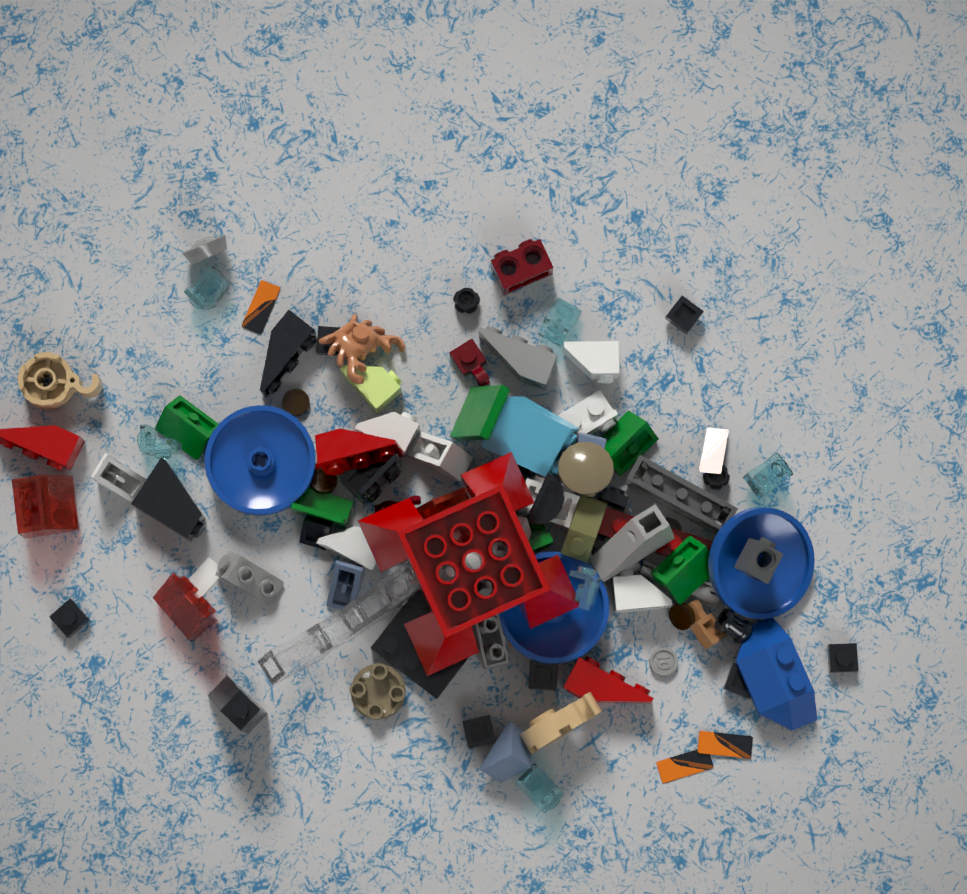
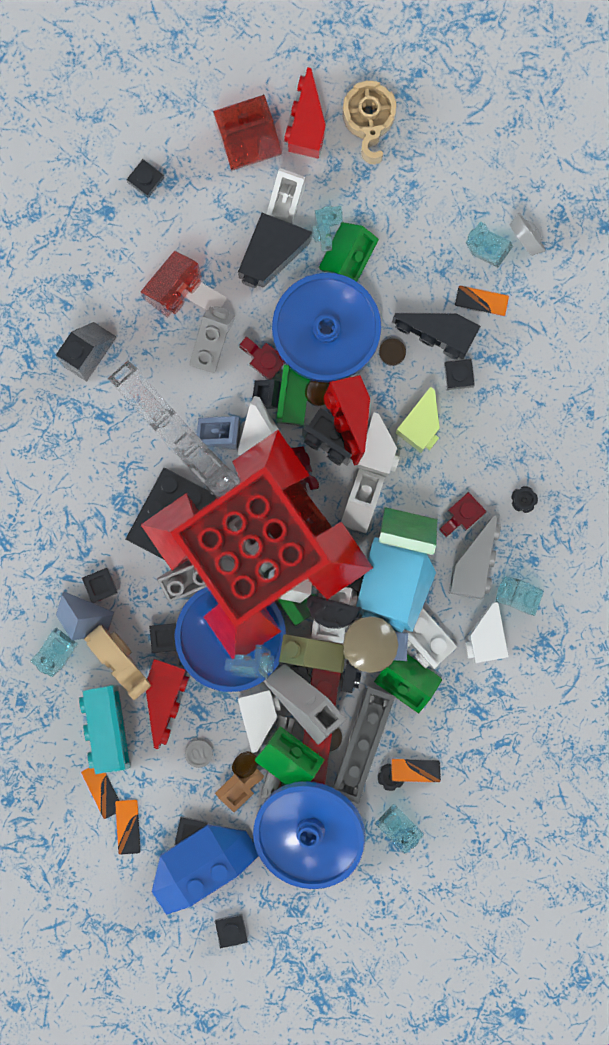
camera: 75 degrees right, 5 degrees up
(280, 527) = (265, 360): none -> dark red plate
(355, 342) = (461, 397): nougat animal -> none
(378, 691) = (123, 482): dark tan dish -> none
(525, 272) = (562, 552): dark red brick -> none
(626, 749) = (105, 729): none -> teal slope
(684, 314) = (549, 719): black plate -> none
(733, 626) = (243, 816): black bush -> none
(748, 563) = (300, 839): dark grey brick -> none

